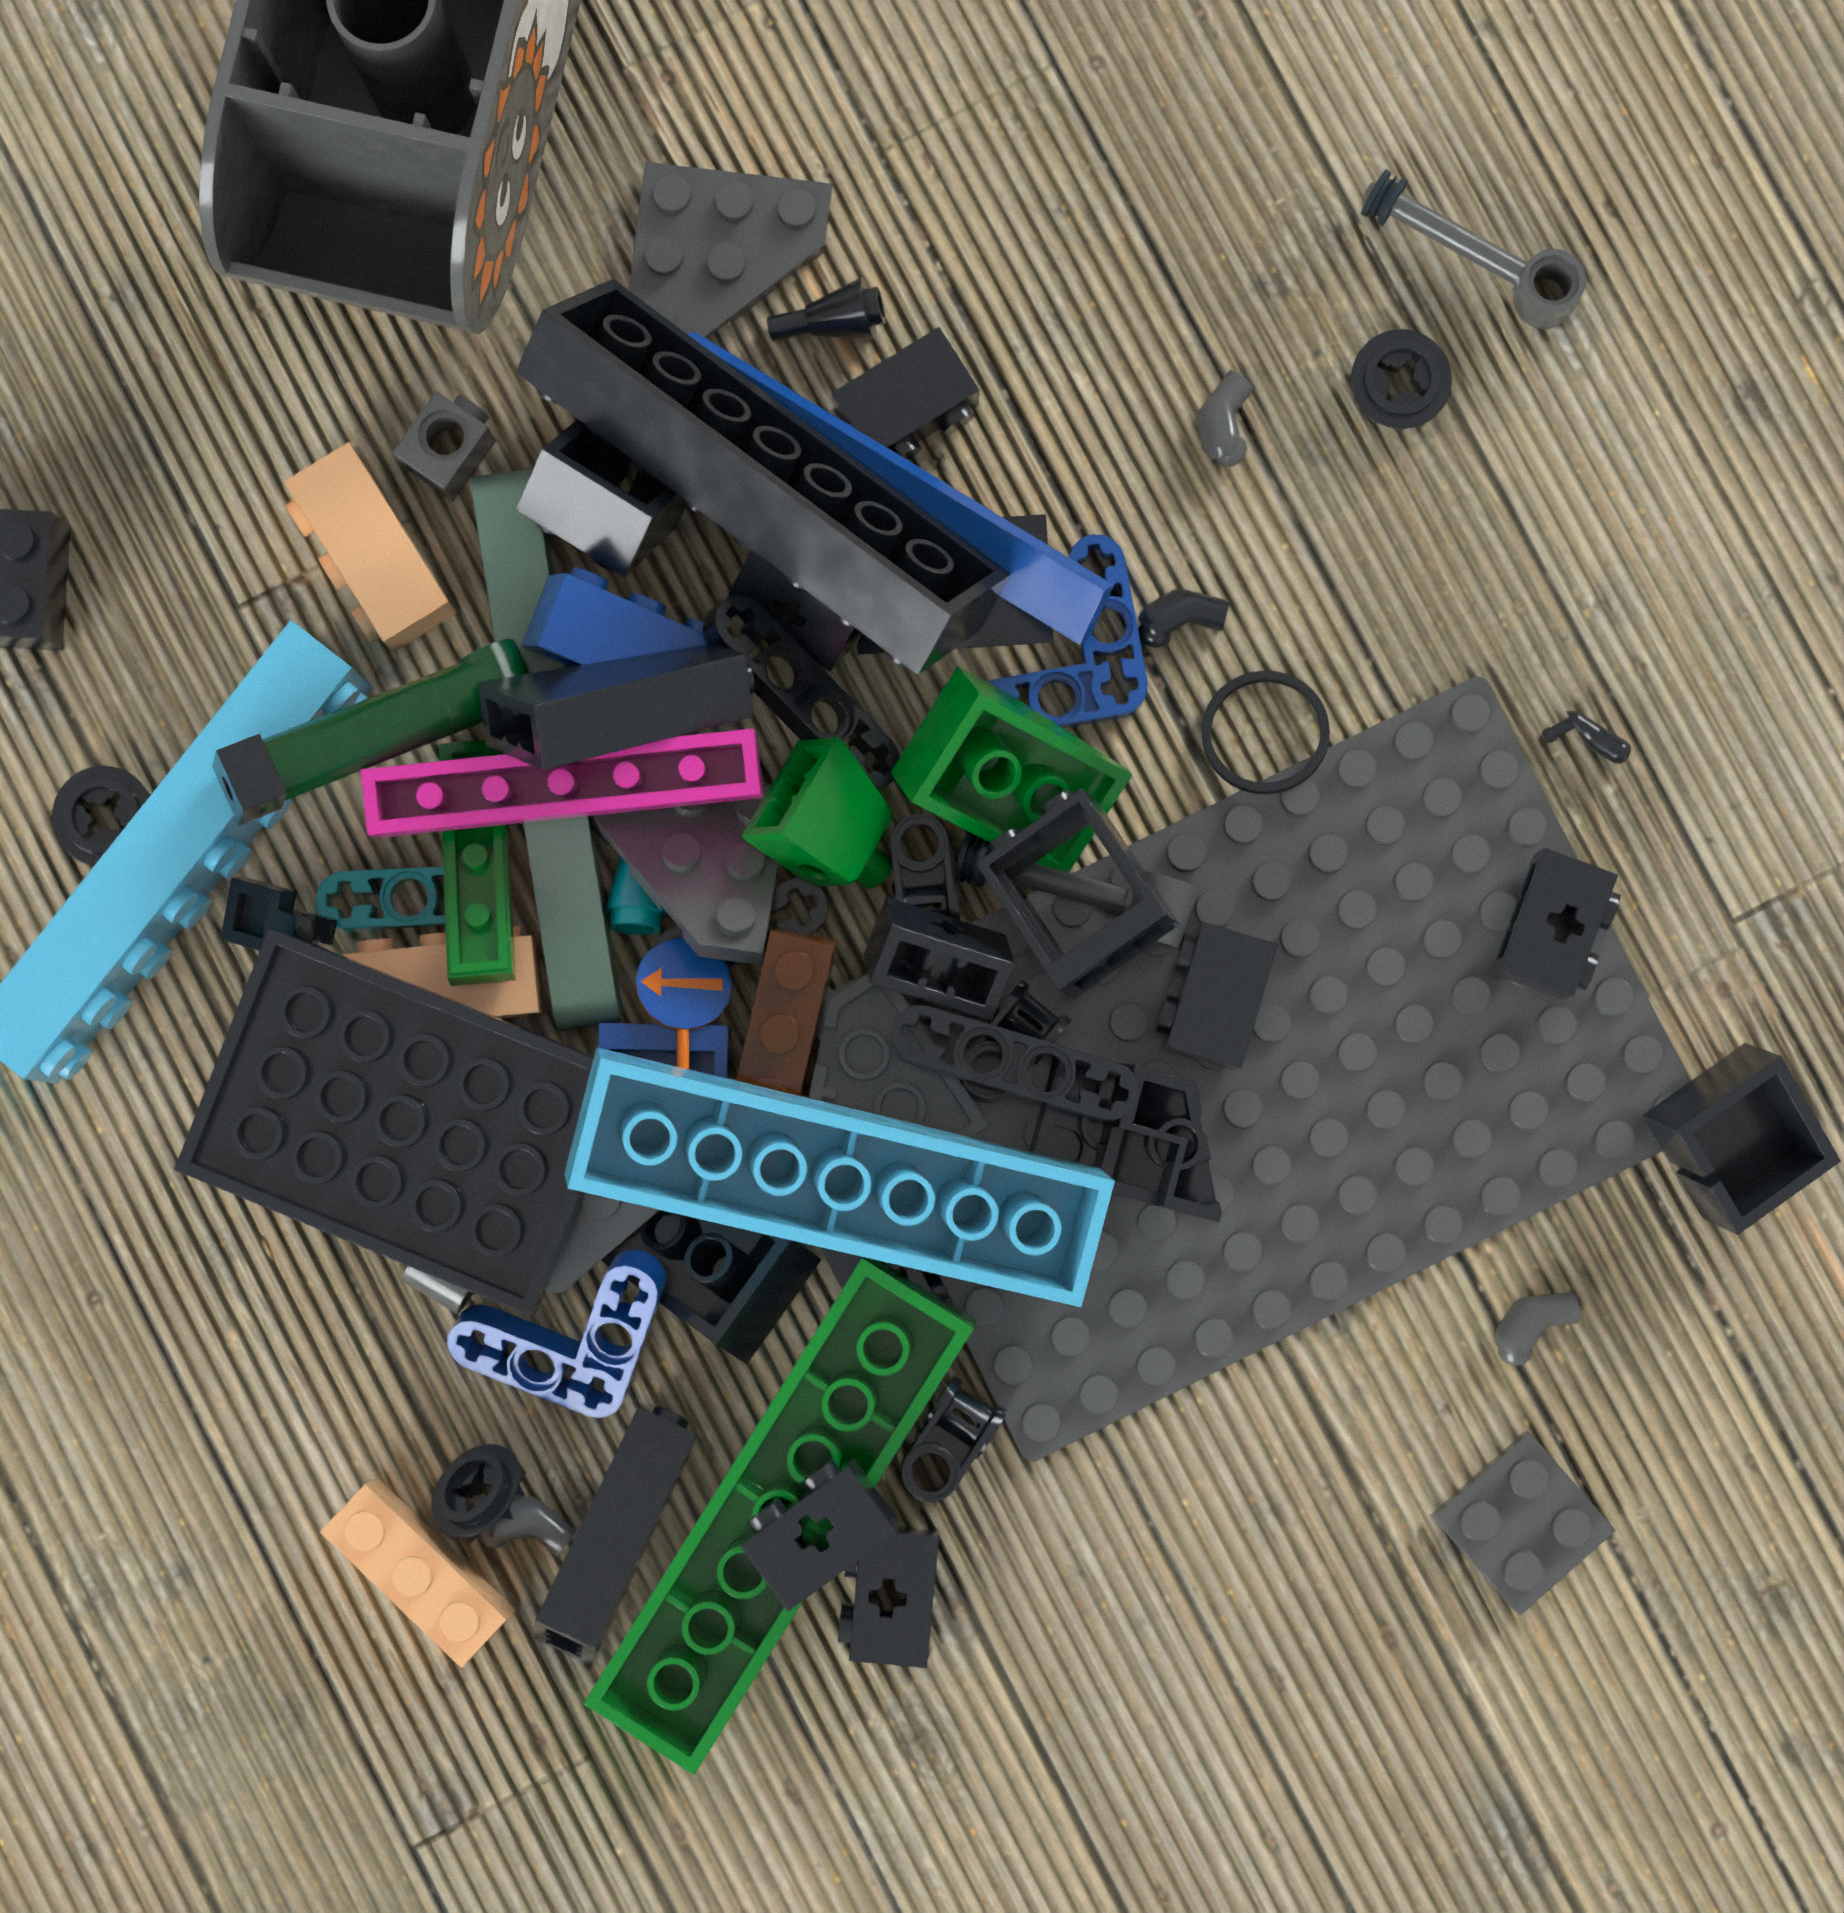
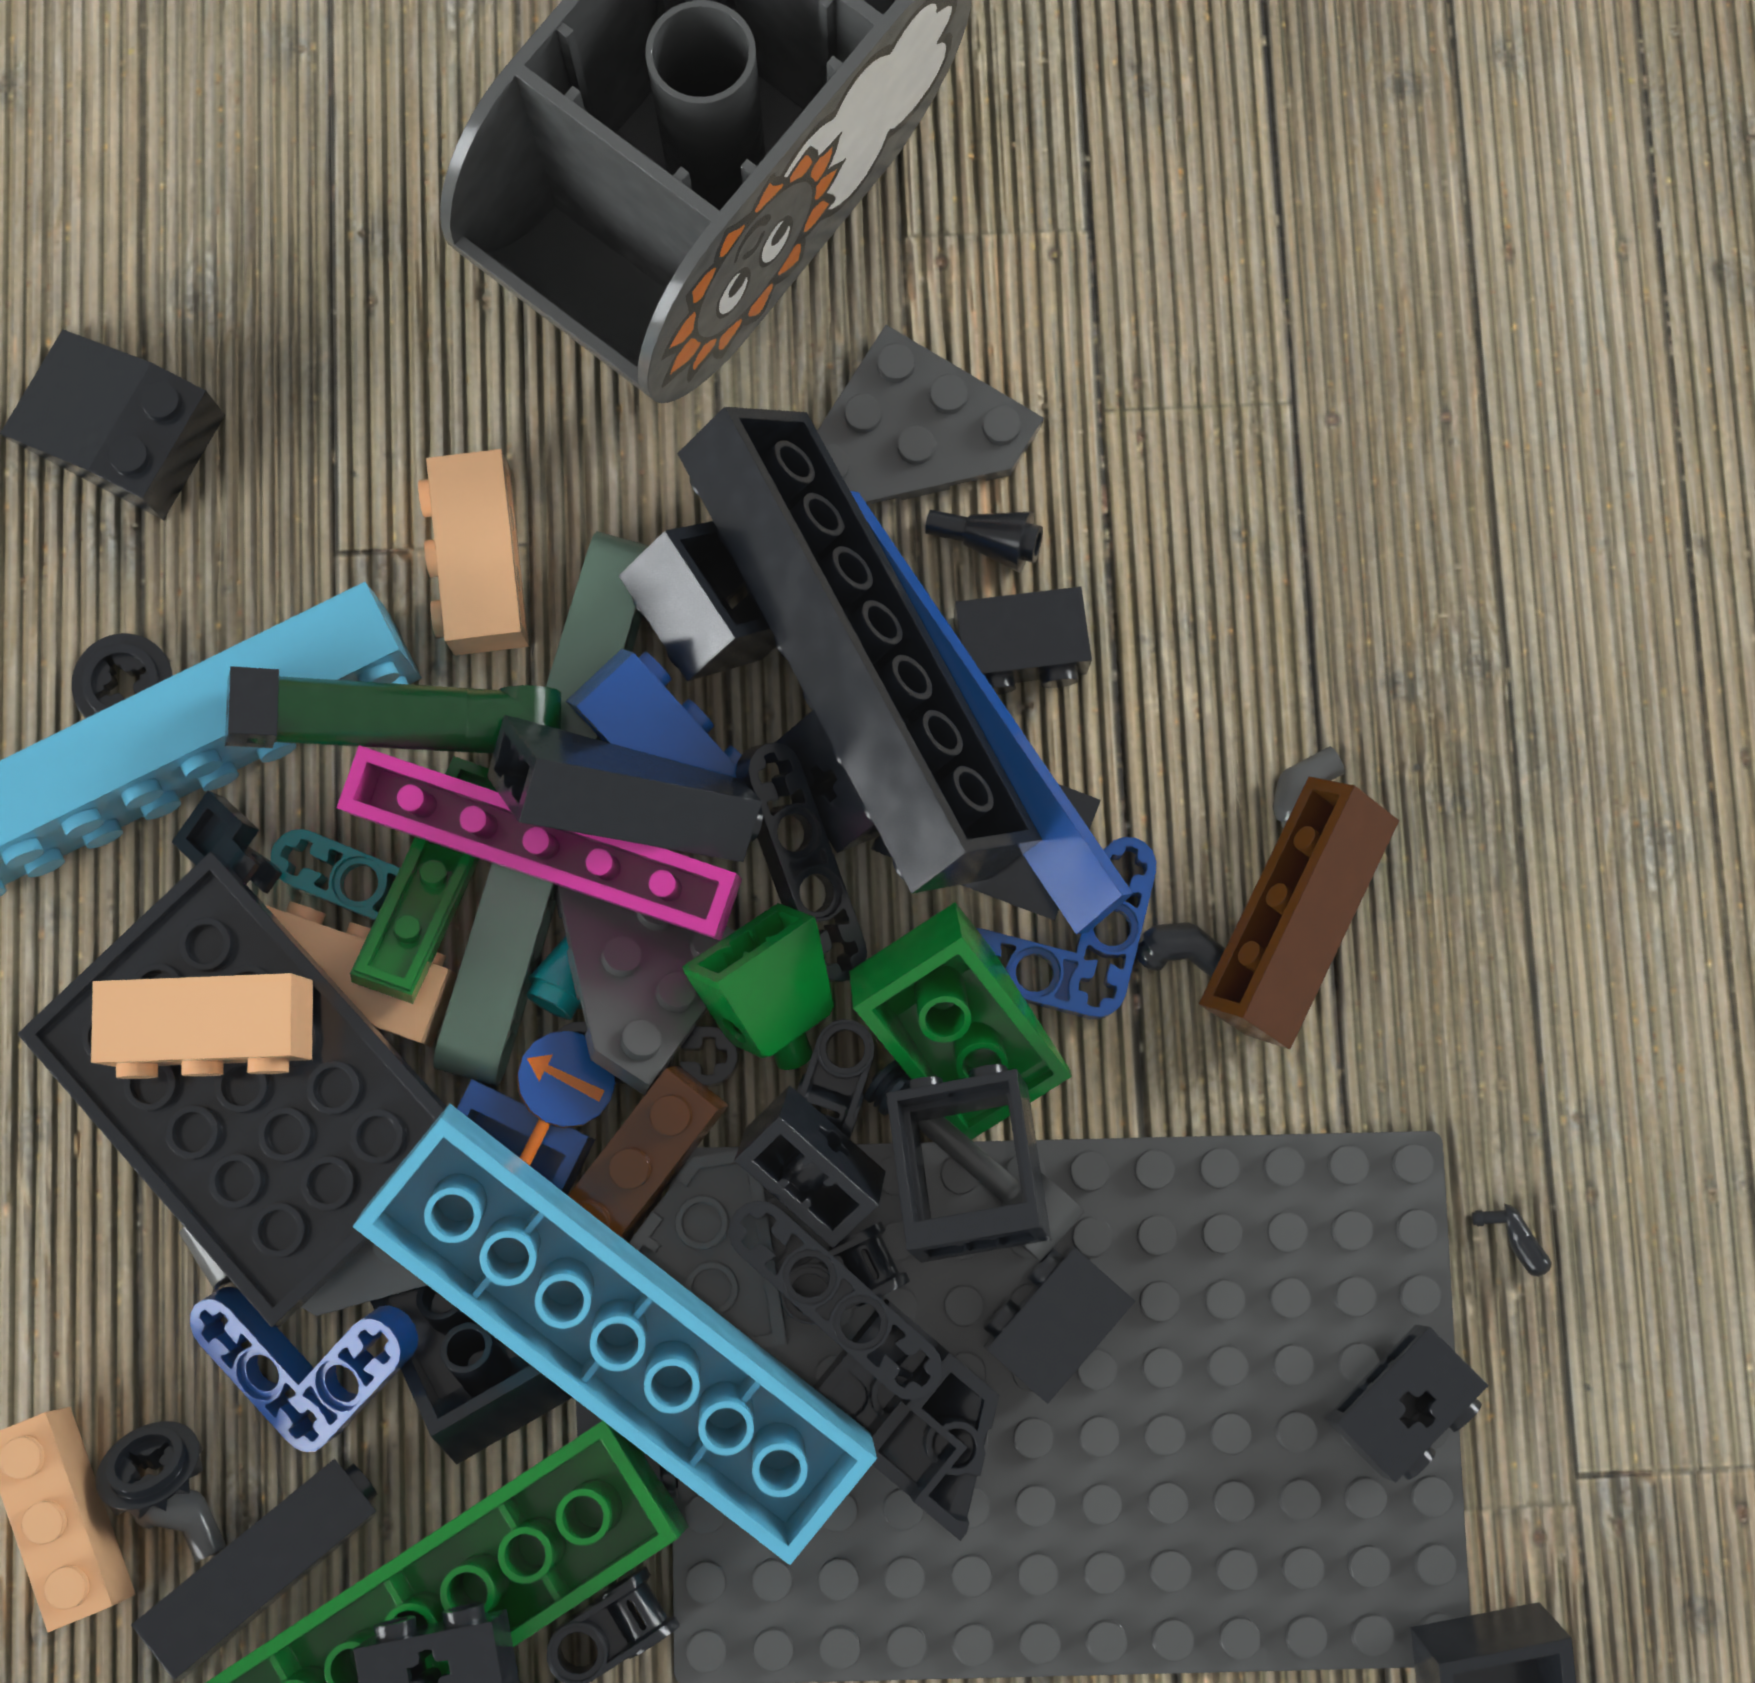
camera: 20 degrees right, 5 degrees down
(341, 1081) = (202, 1024): none -> light nougat brick
(452, 471) = (583, 518): dark grey brick -> none
(1264, 787) = (1236, 1041): black piece -> none
(1269, 533) = (1299, 911): none -> reddish brown brick
(1387, 199) = (1677, 788): dark grey piece -> none
(1392, 352) = (1487, 797): black gear -> none

